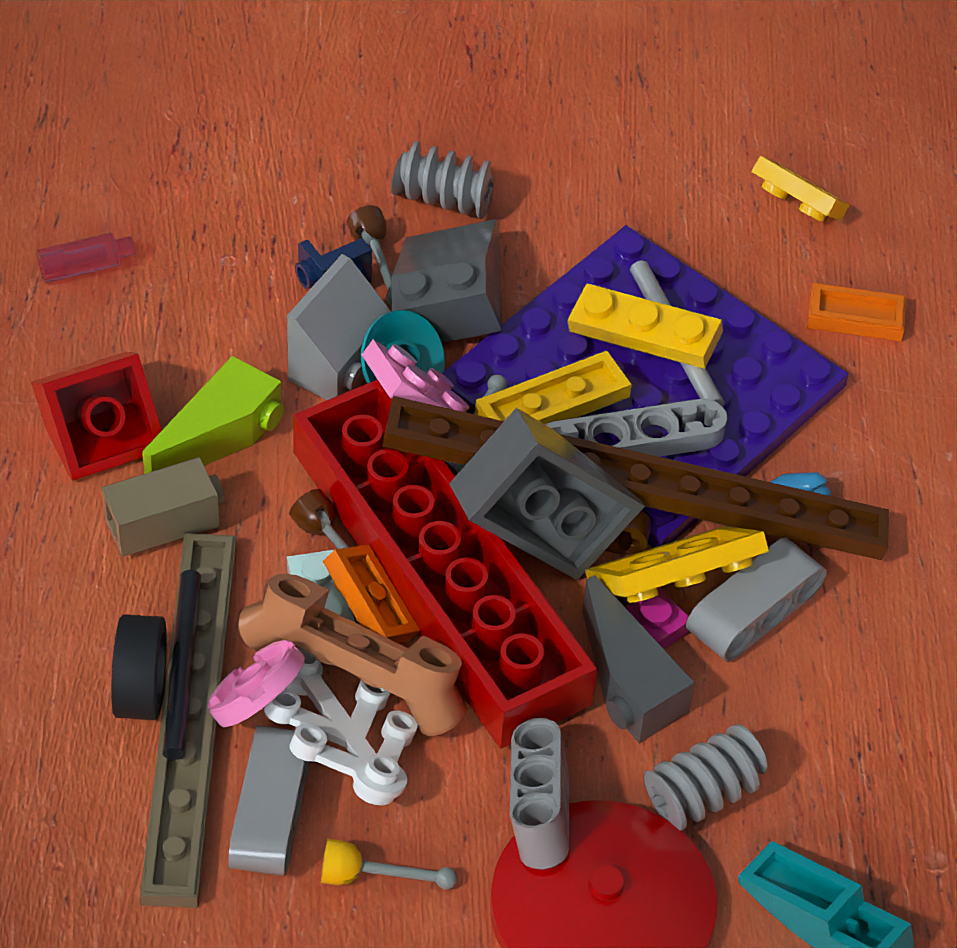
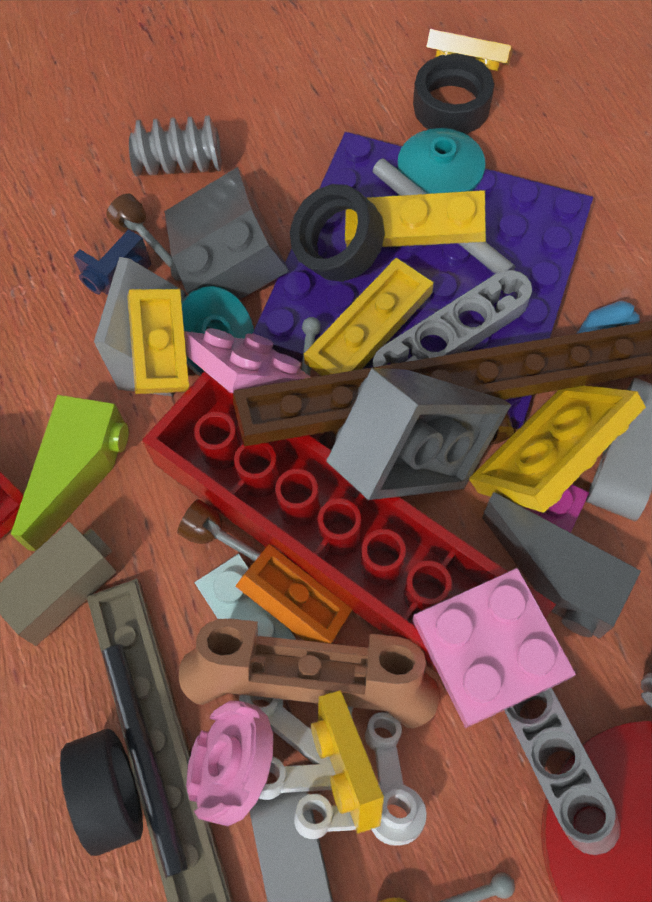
camera: 15 degrees left, 15 degrees up
(344, 337) = (157, 341): none -> yellow plate
(354, 712) = (354, 780): none -> yellow plate
(521, 673) = (492, 647): none -> bright pink plate
(573, 329) = (312, 217): none -> black tyre
(707, 284) = (442, 161): none -> teal dish
(750, 252) = (453, 71): none -> black tyre
(856, 312) = (566, 139): orange tile -> none

